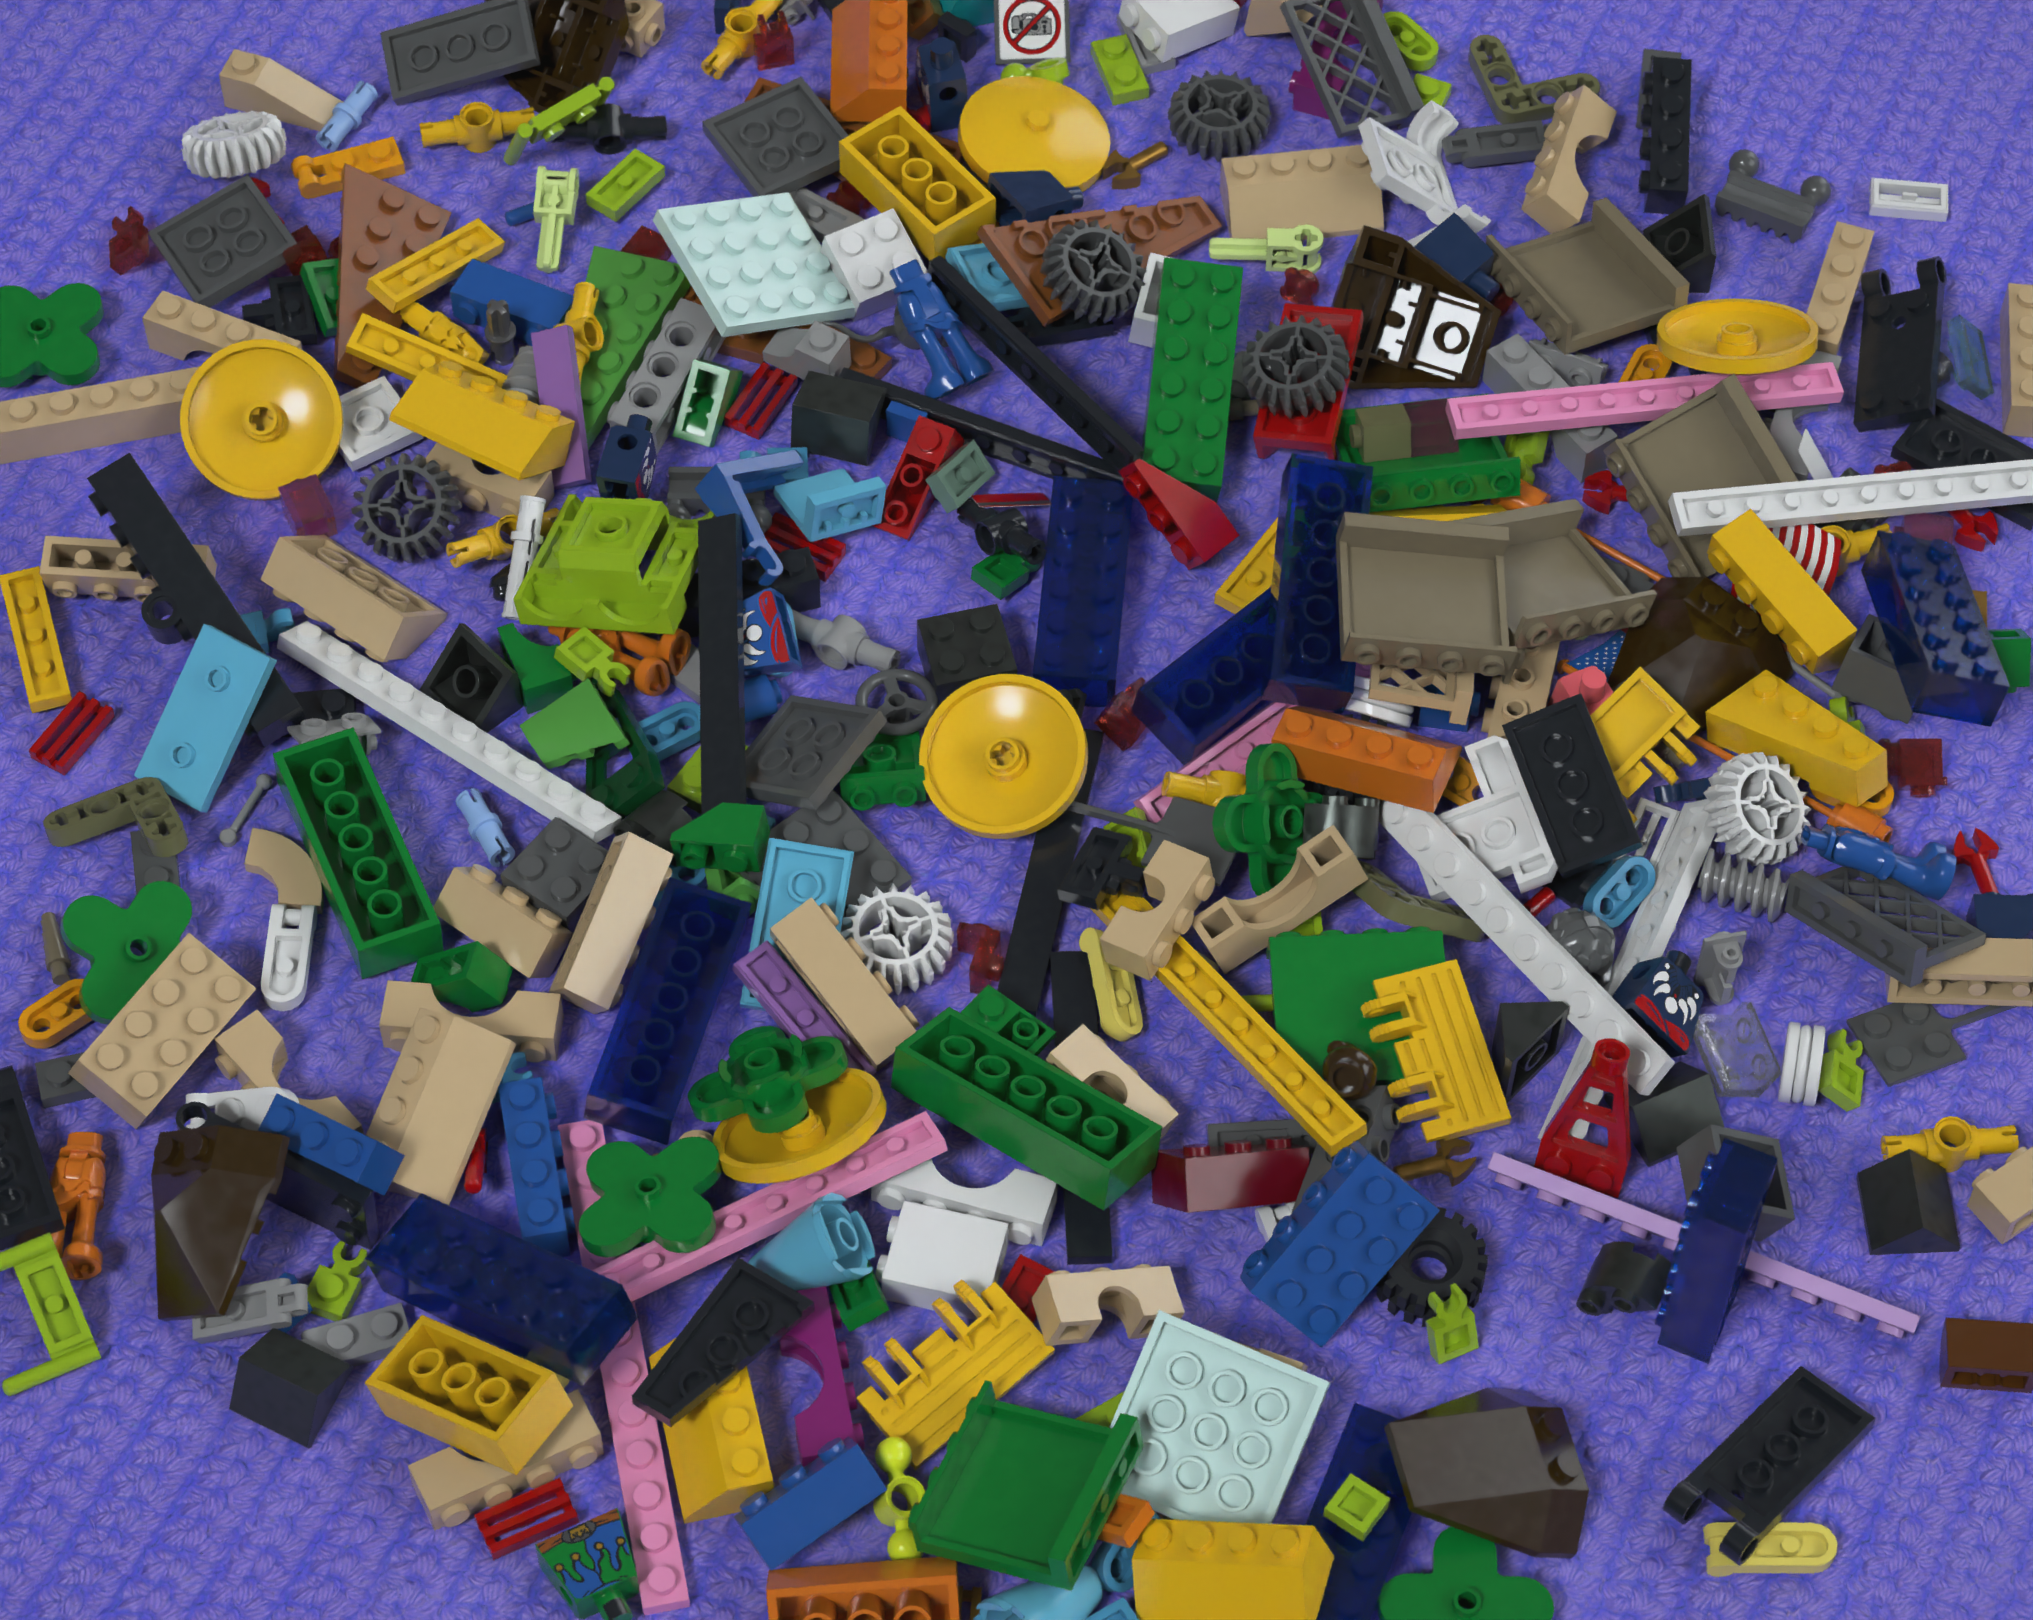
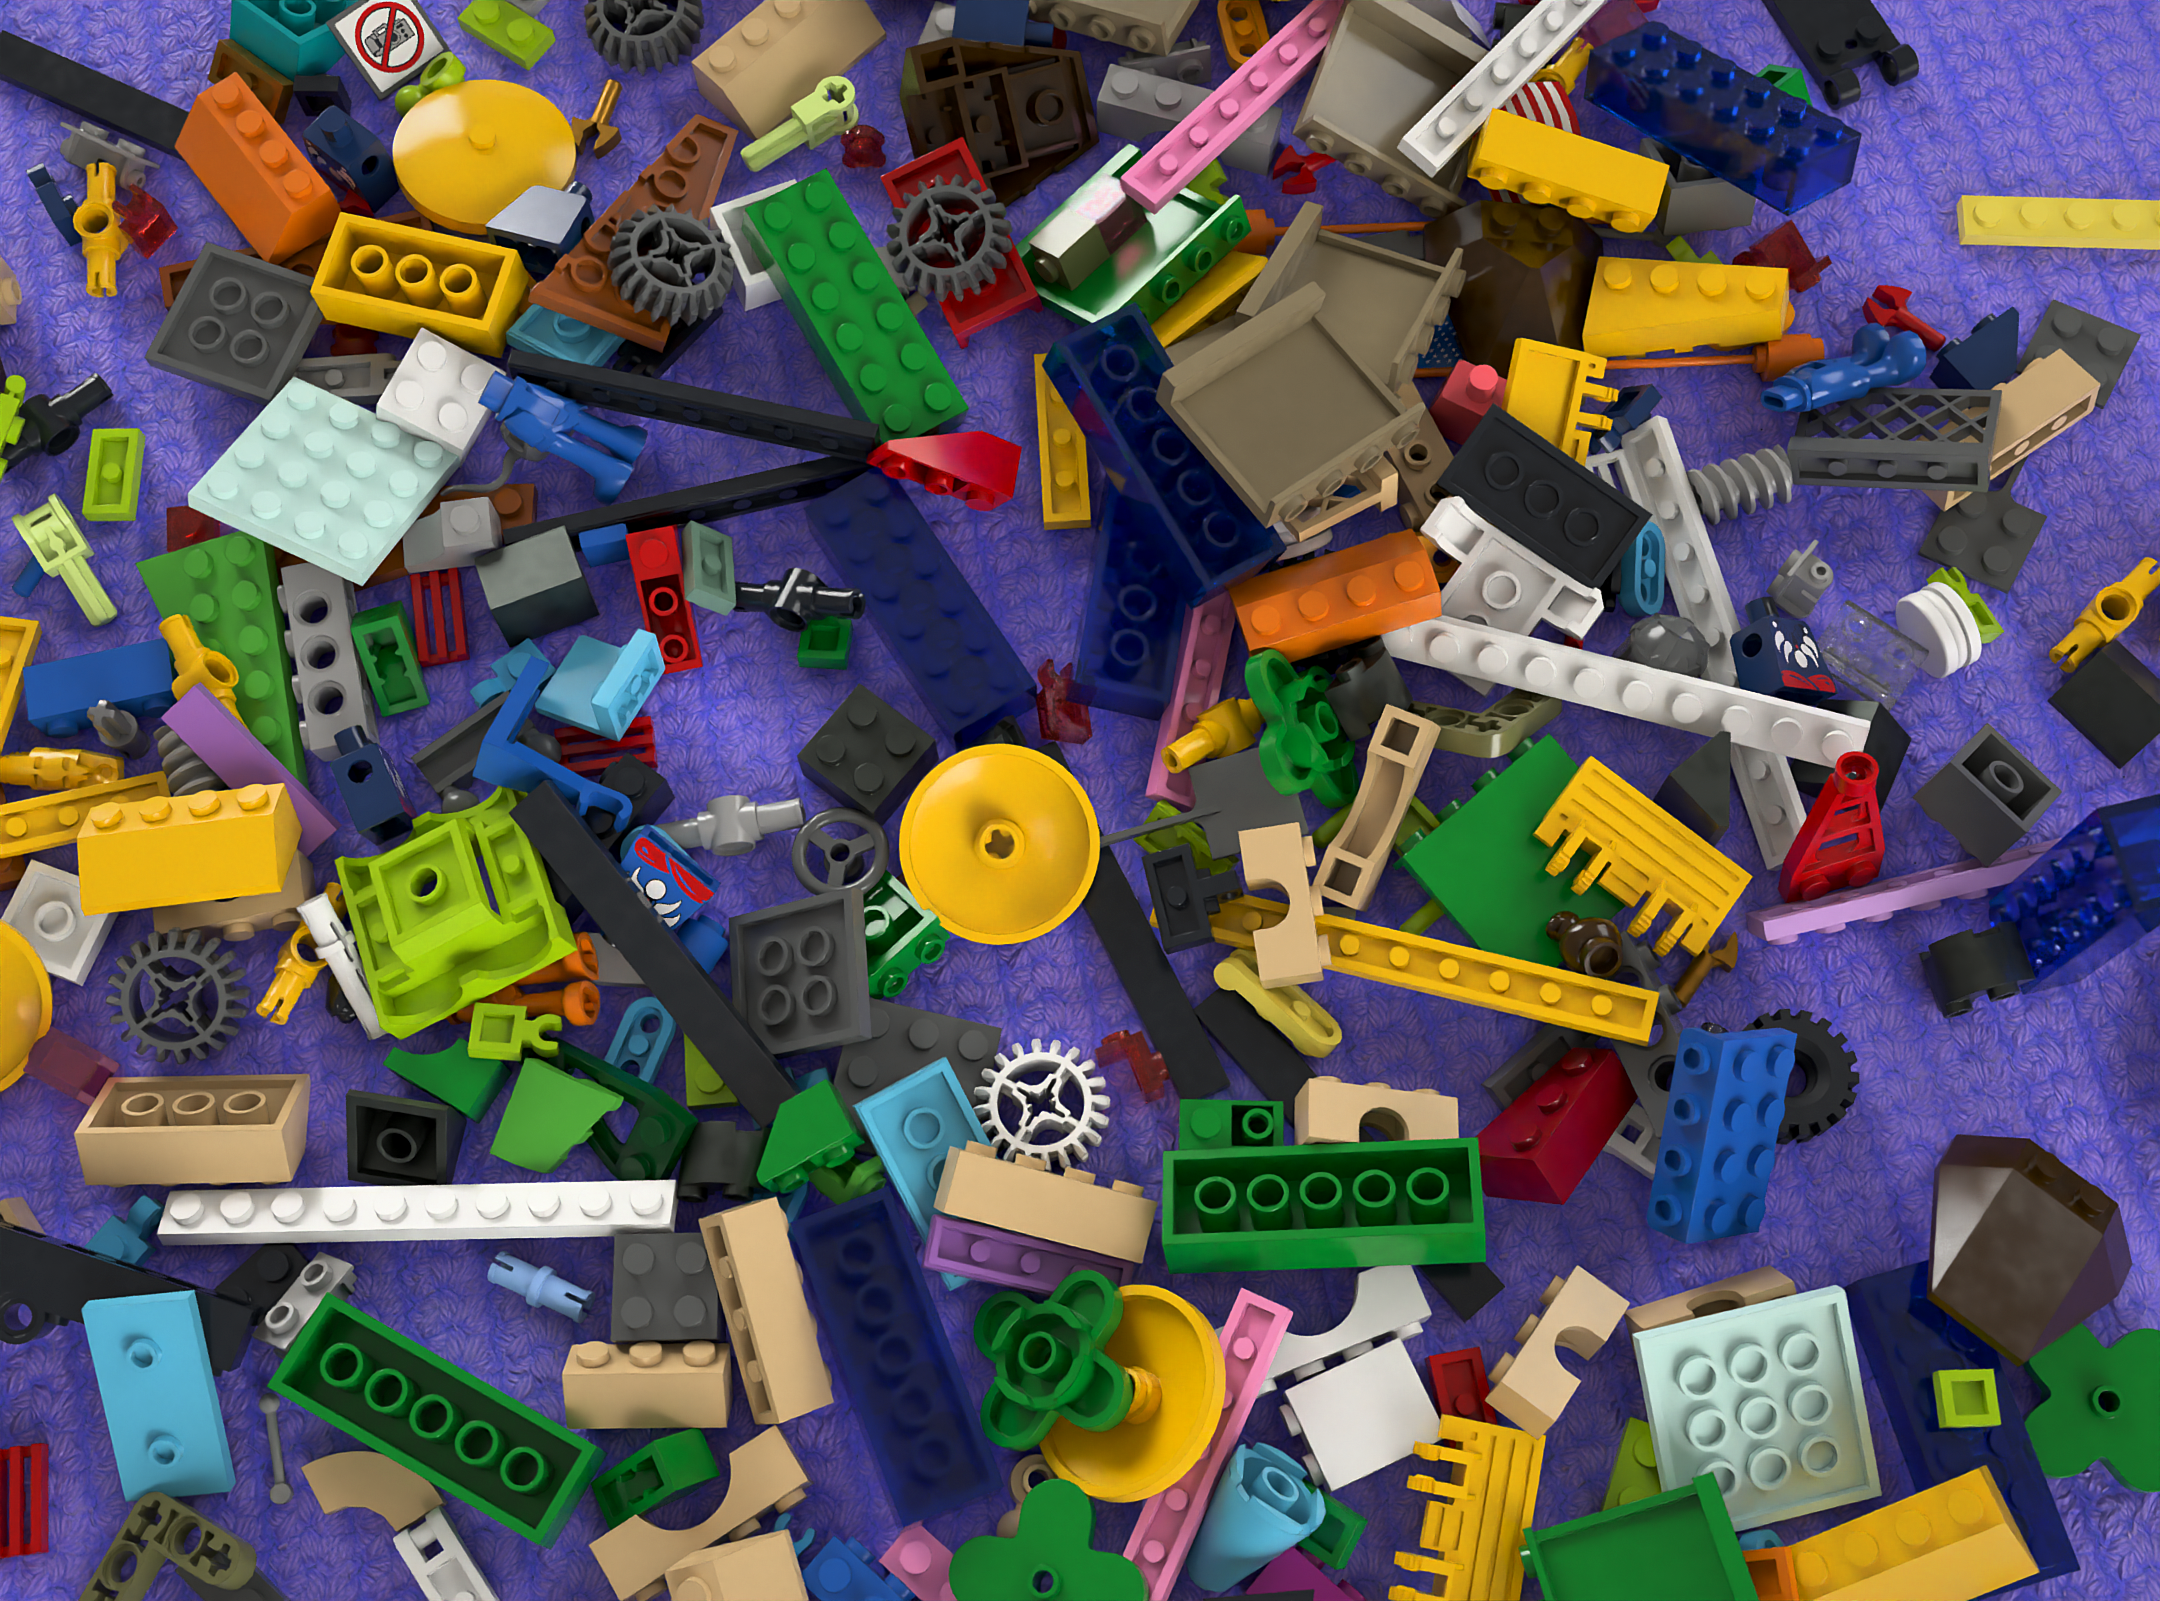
camera: 35 degrees left, 15 degrees up
(1011, 499) = (772, 556): red sticker -> none
(1453, 1328) = (1861, 1127): lime plate -> none
(1756, 808) = (1701, 402): white gear -> none

